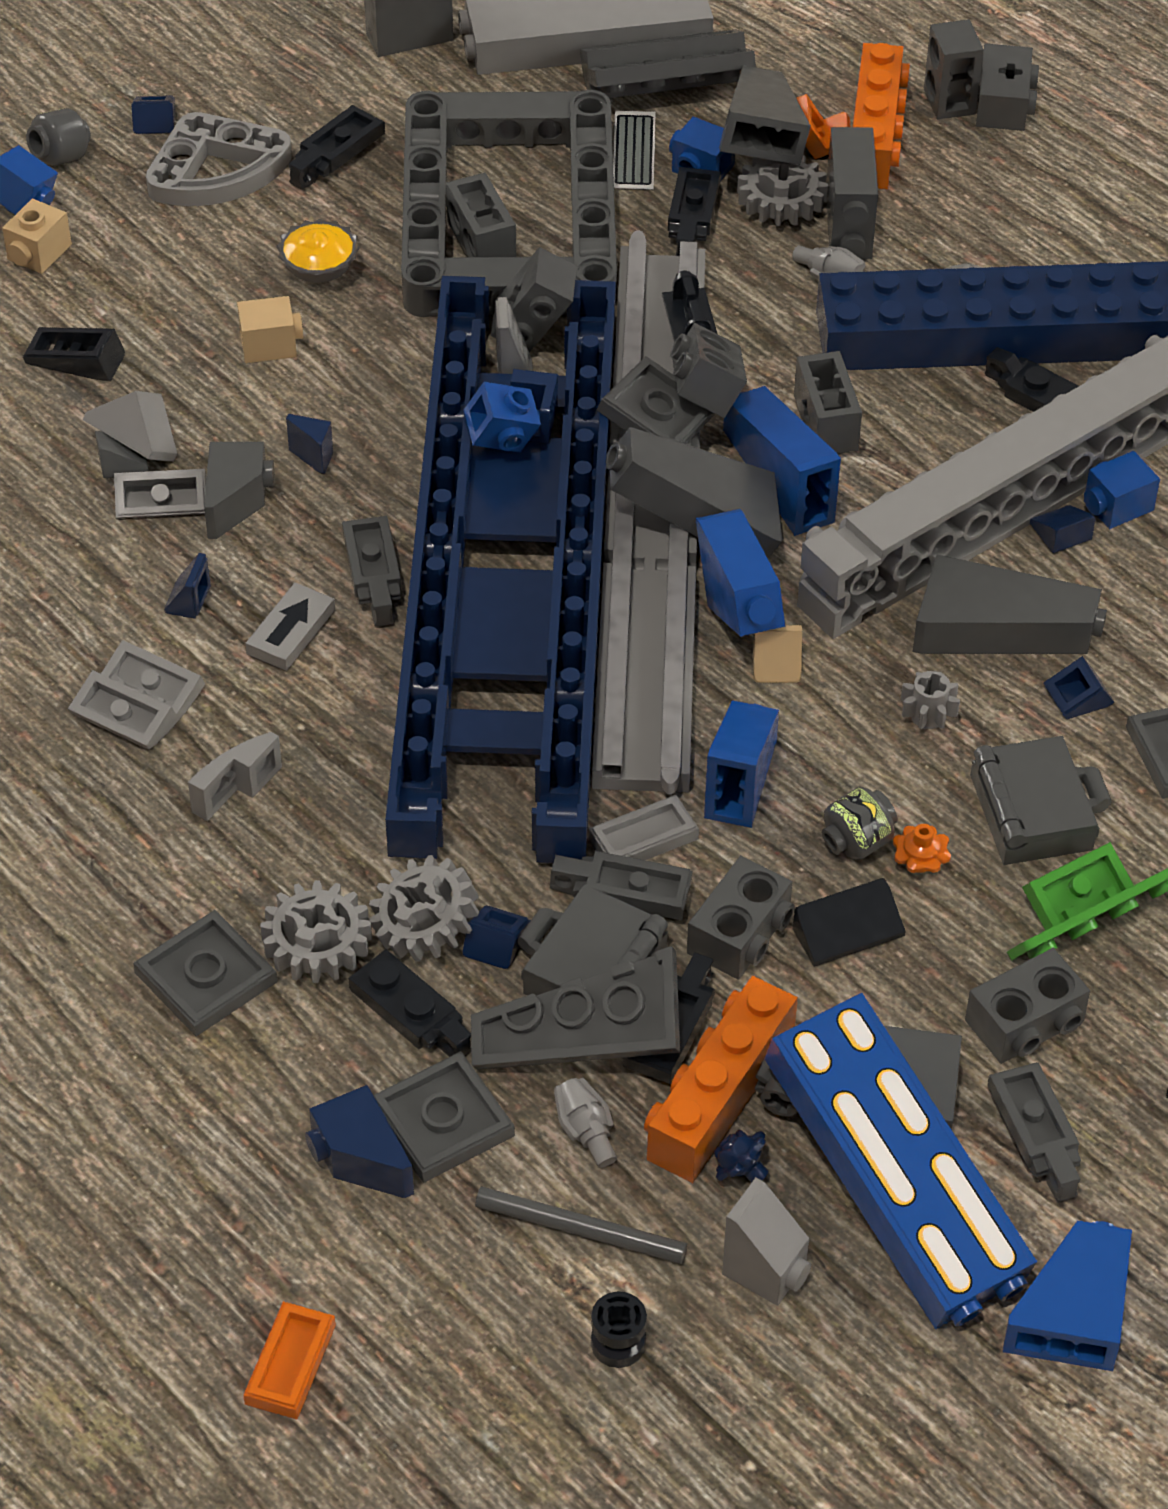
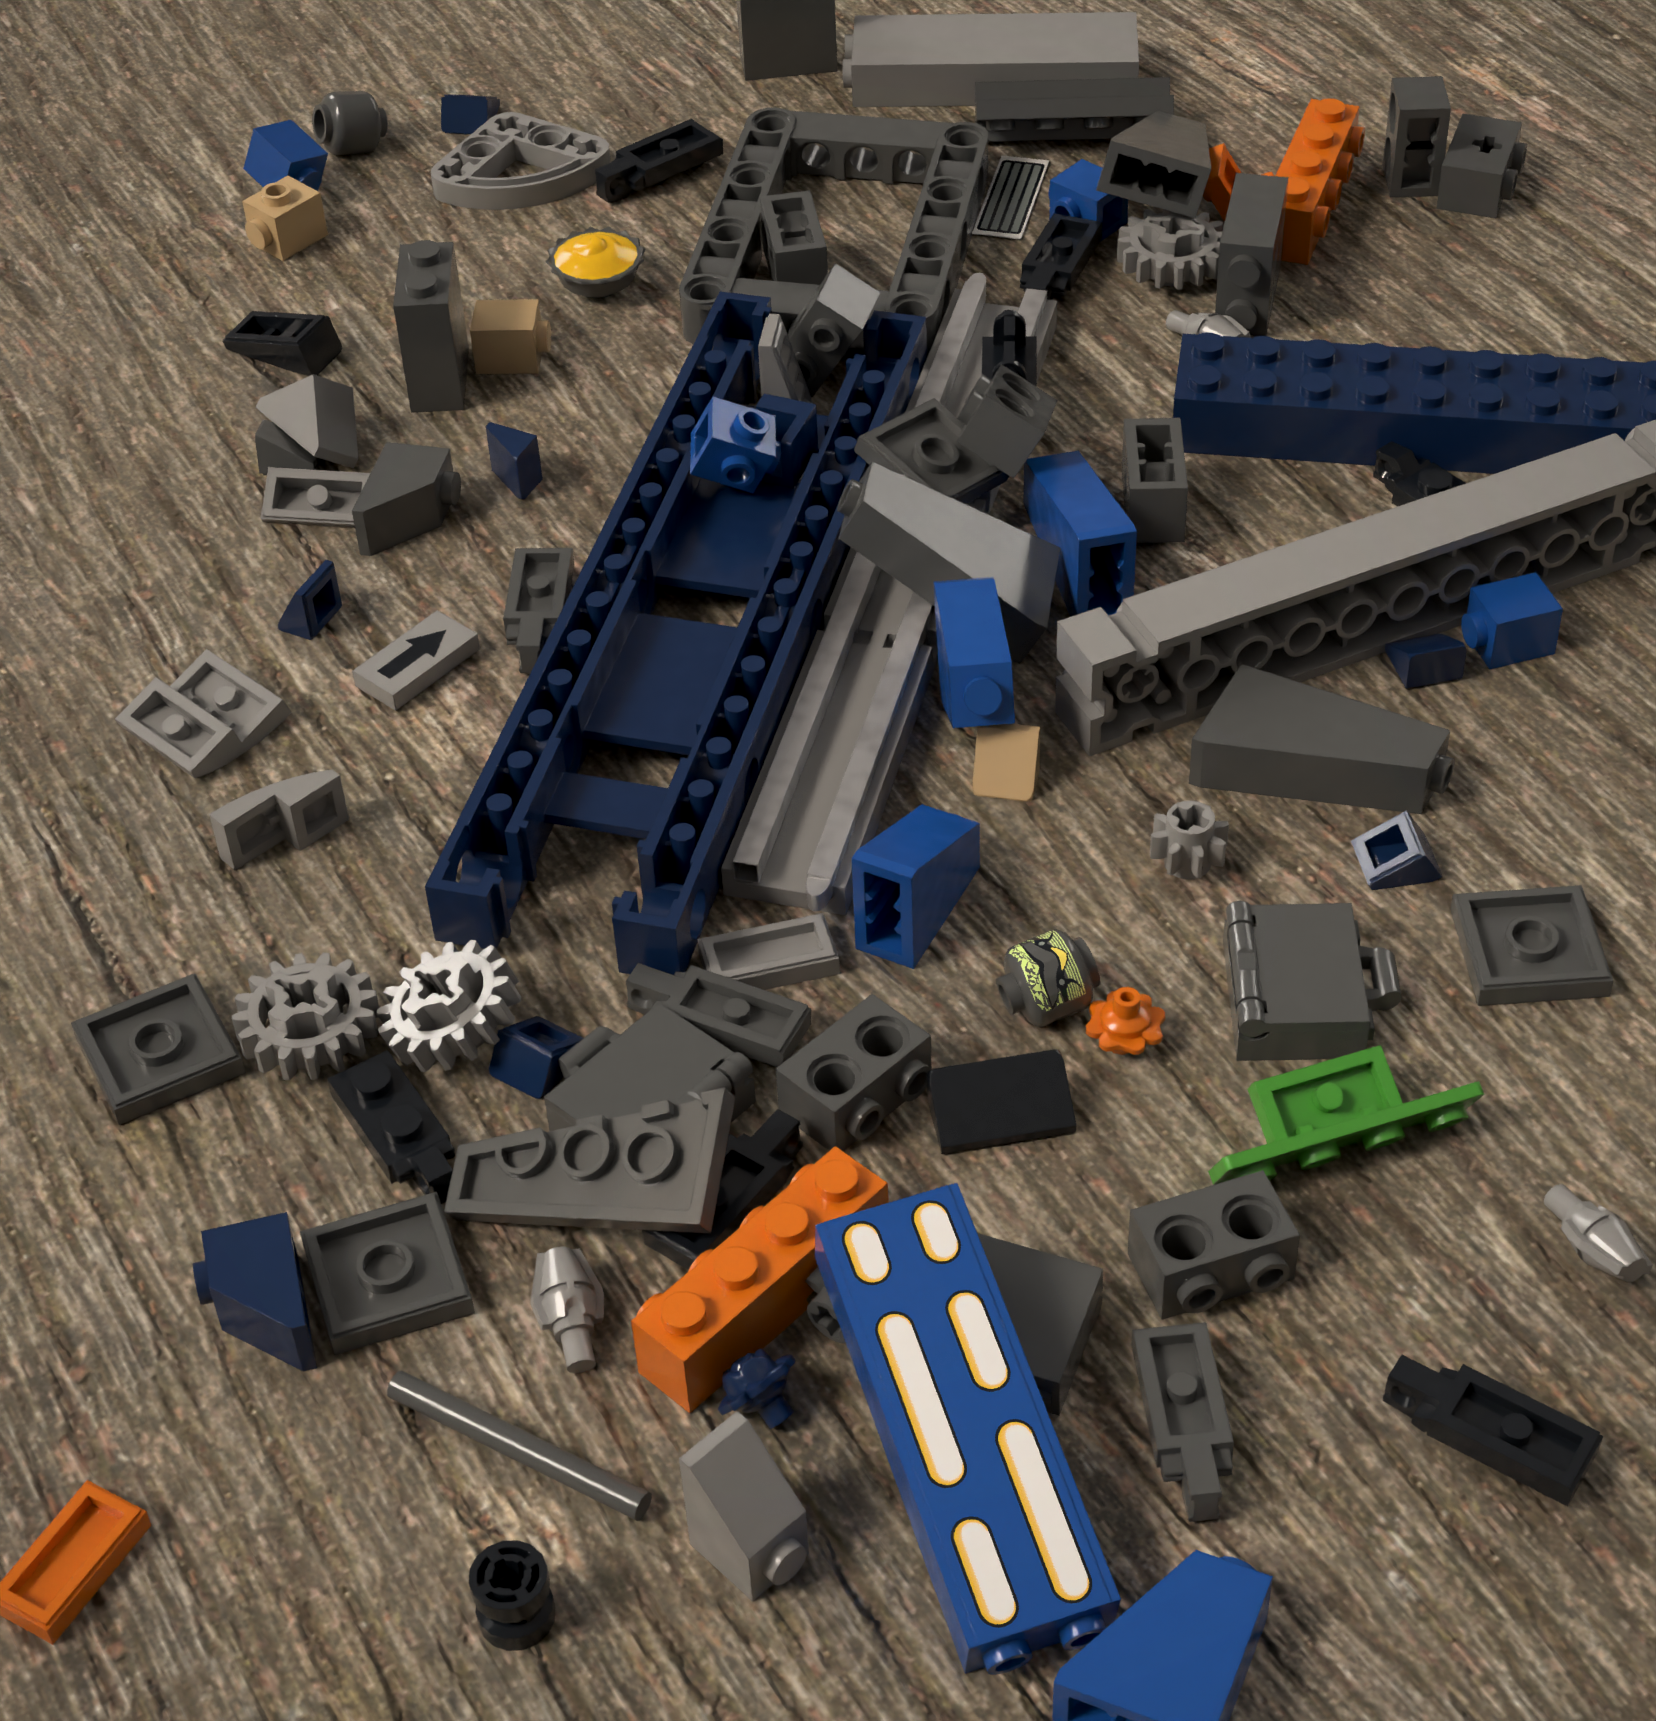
camera: 15 degrees right, 5 degrees down
(212, 332) = (431, 326): none -> dark grey brick

